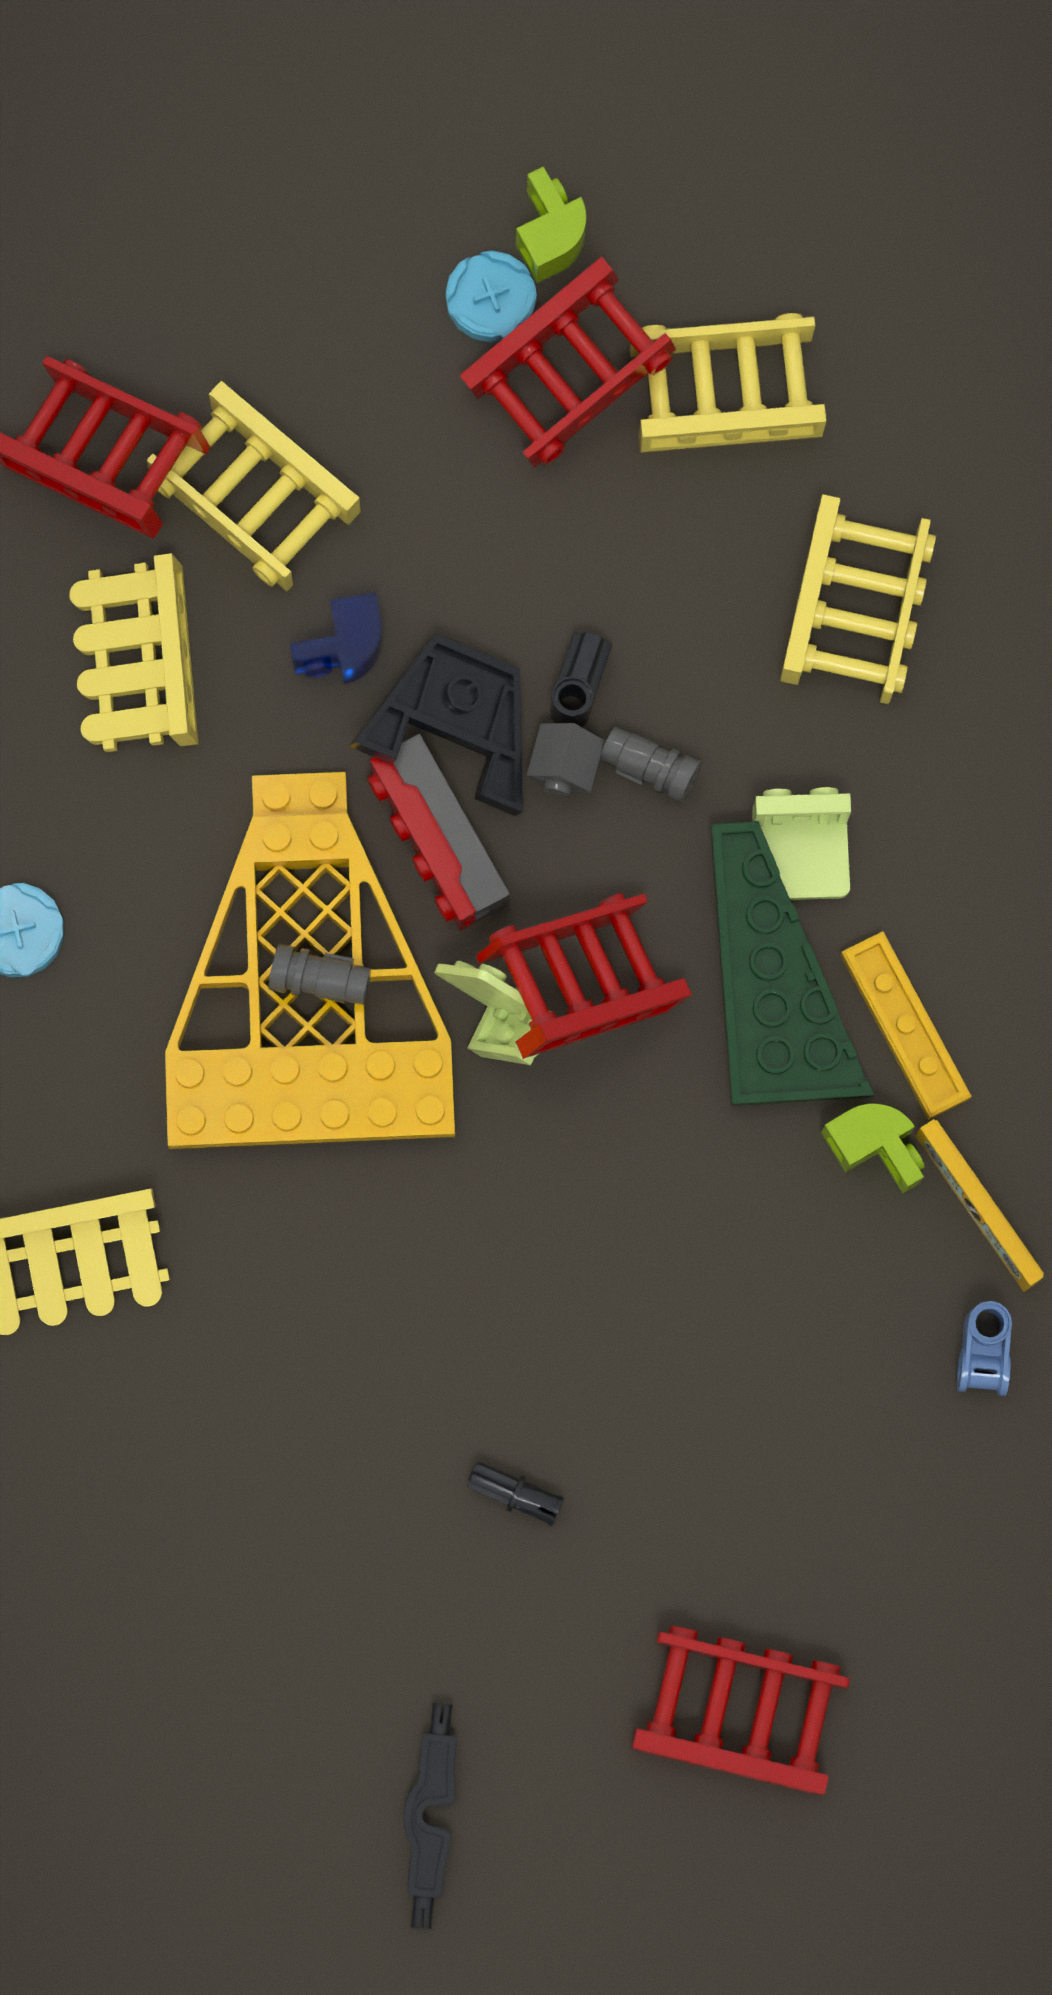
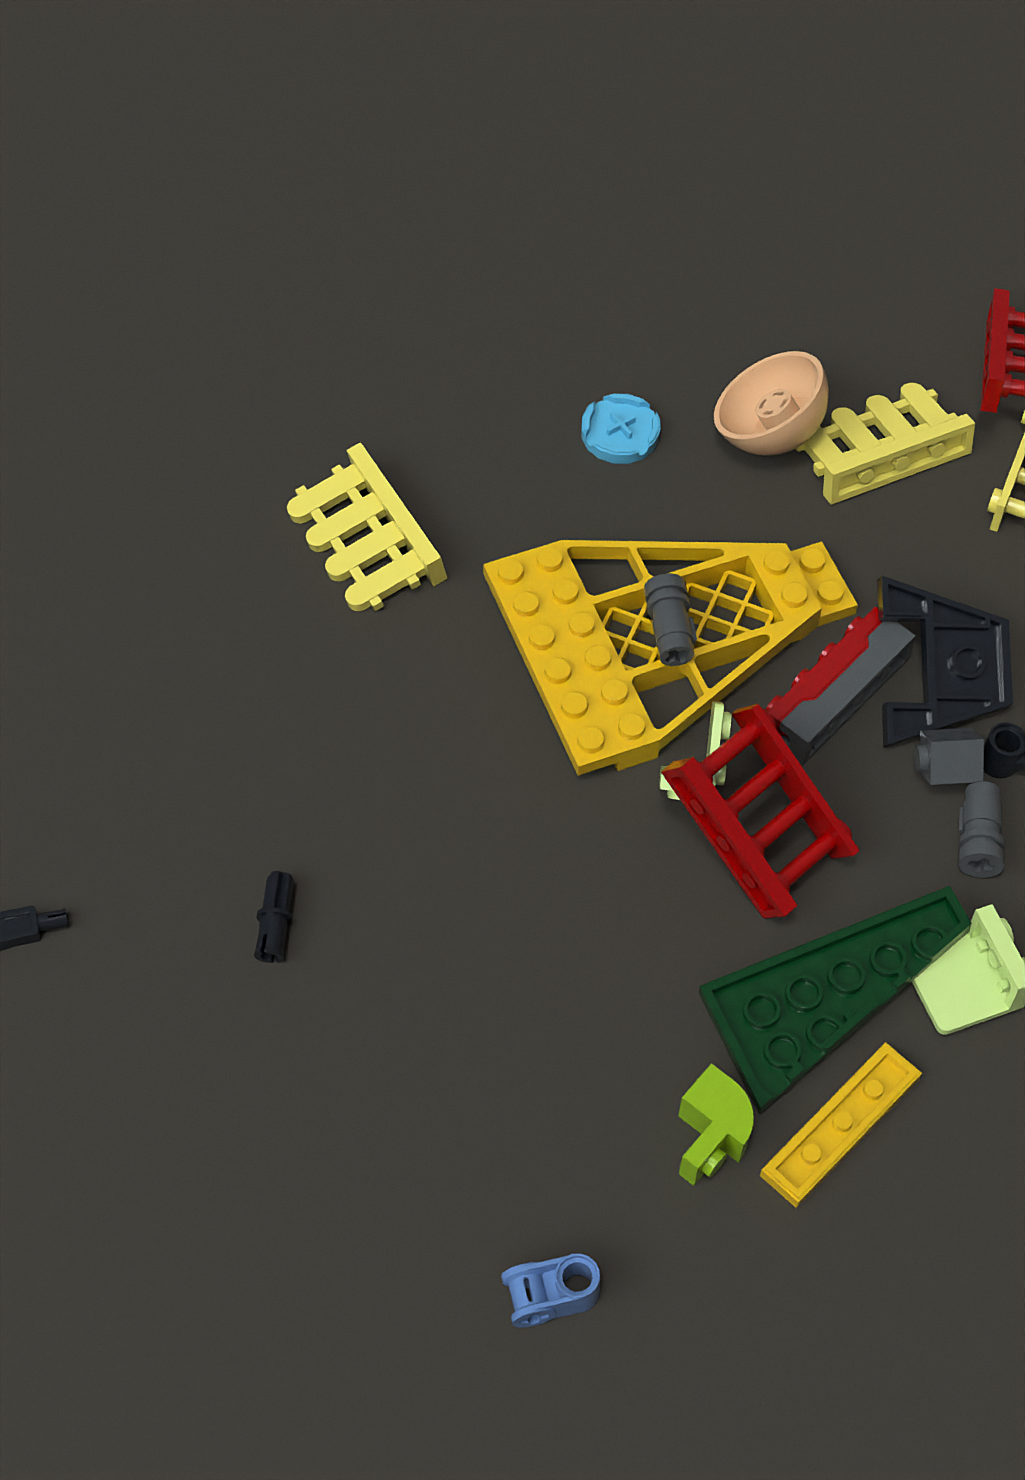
camera: 75 degrees right, 20 degrees down
(59, 776) = (774, 404): none -> light nougat piece
(352, 648) = (970, 577): clear blue brick -> none
(707, 1747) = (79, 1145): red fence -> none
(979, 1205) = (692, 1241): yellow tile -> none

